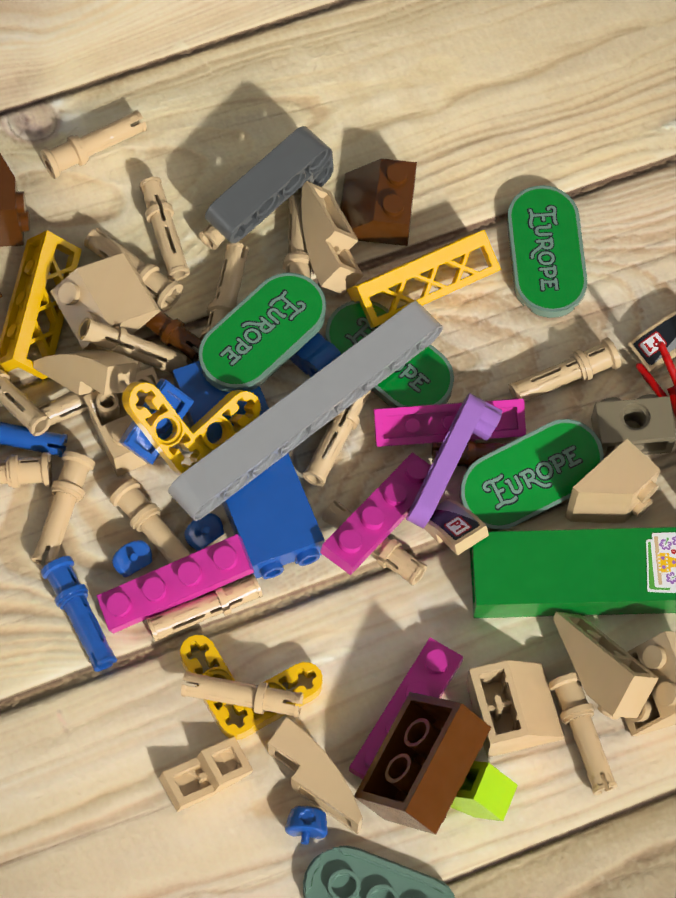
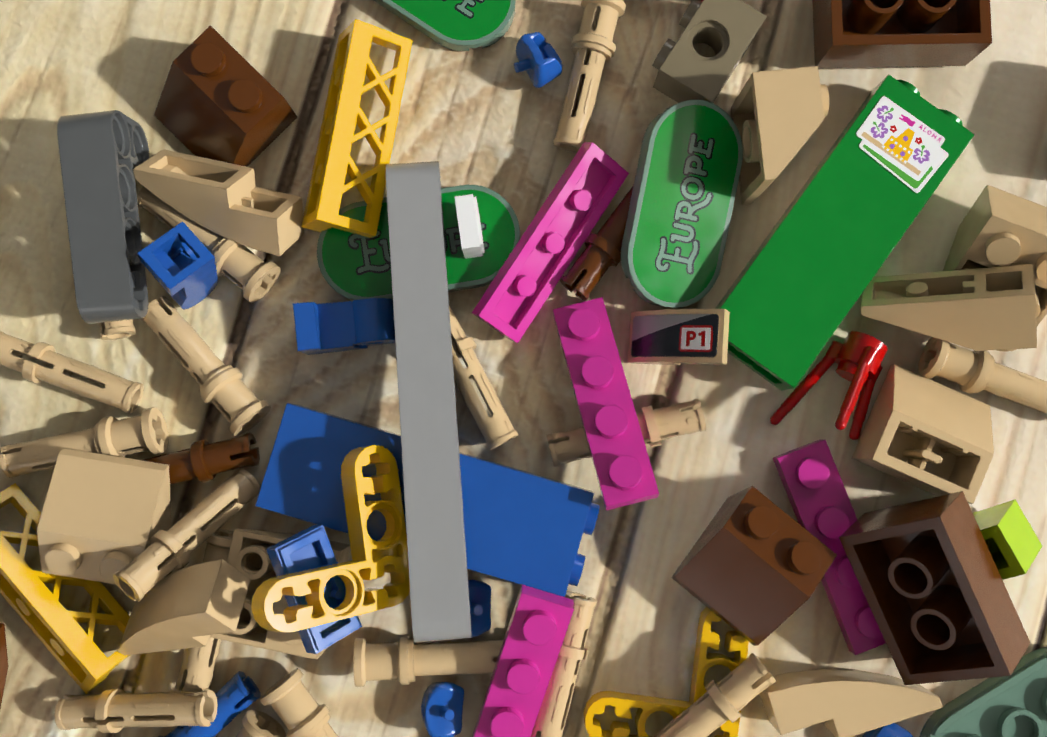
camera: 50 degrees left, 20 degrees up
(262, 332) = (289, 370): green tile -> none
(273, 242) = (181, 265): none -> blue leg
(354, 660) = (754, 565): none -> reddish brown slope
(420, 369) = (469, 226): none -> white tile
(472, 417) = (578, 224): medium lavender beam -> none
(524, 638) = (857, 362): none -> red plant
(550, 342) = (537, 59): none -> blue piece

